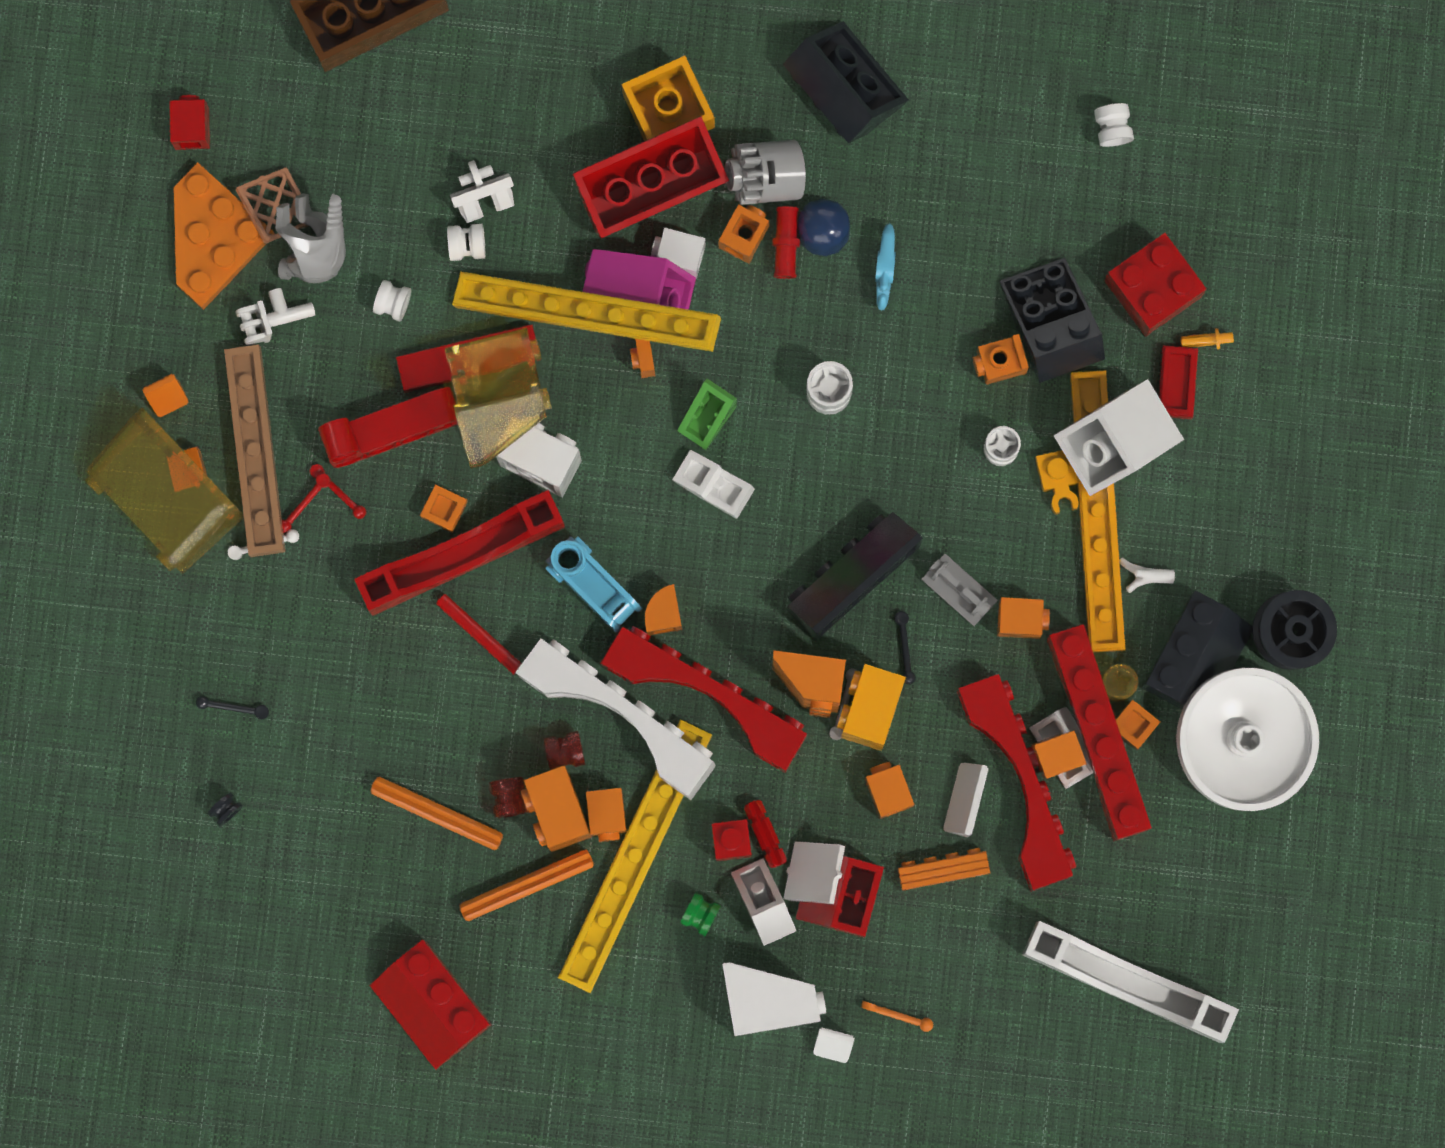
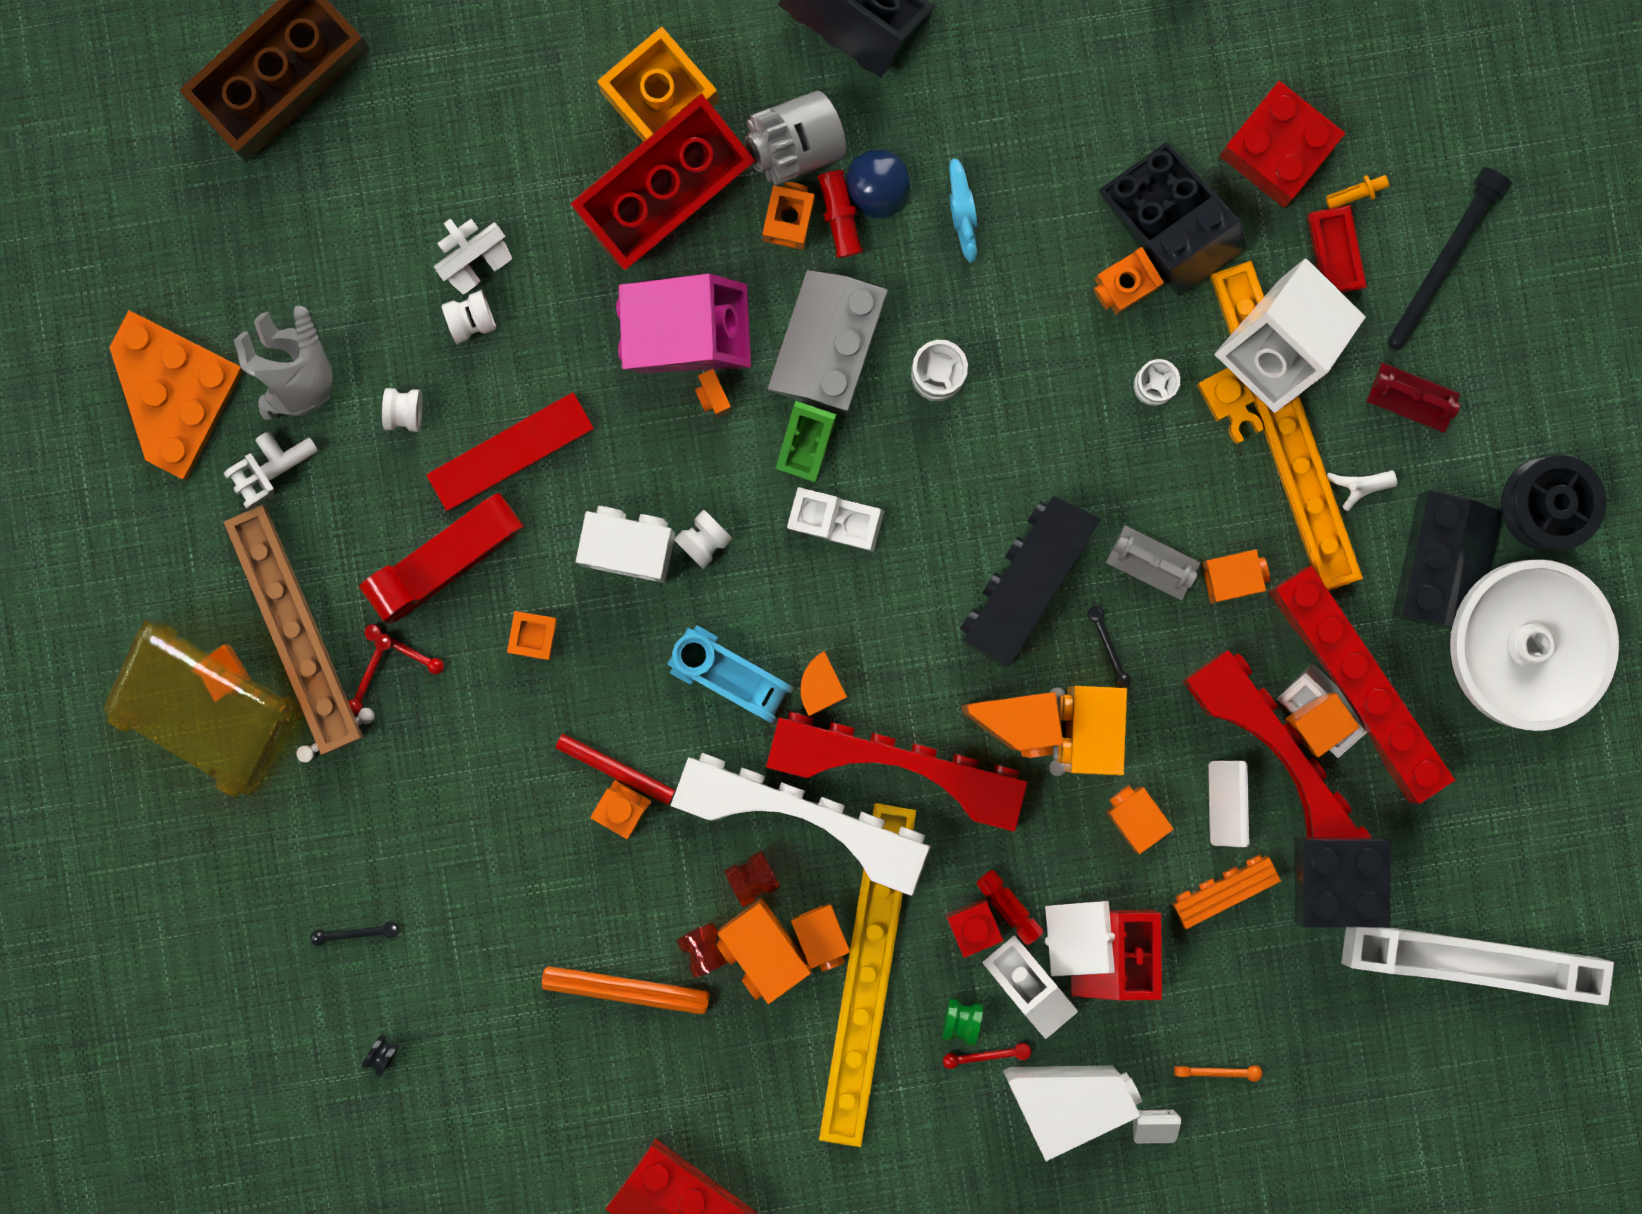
camera: 15 degrees left, 5 degrees up
(165, 395) = (171, 594): orange slope -> none
(189, 123) = (105, 267): red brick -> none
(255, 216) = (211, 312): nougat window -> none
(437, 565) = (566, 684): red arch -> none
(475, 666) = (621, 809): none -> orange brick
(496, 392) = (555, 488): clear yellow windscreen -> none
(526, 885) = (752, 1044): orange axle -> none
(587, 311) = (635, 361): yellow tile -> none
(602, 469) = (703, 539): none -> white wheel
(681, 249) = (719, 256): white brick -> none
(741, 953) = (1020, 1050): none -> red hinge
(749, 340) = (828, 341): none -> light grey slope
(1036, 881) = (1342, 882): none -> black brick
(1115, 685) = (1363, 621): clear yellow wheel -> none
(1136, 724) = (1400, 662): orange plate -> none
(1206, 516) = (1413, 398): none -> dark red hinge
(1314, 366) = (1489, 188): none -> black piece

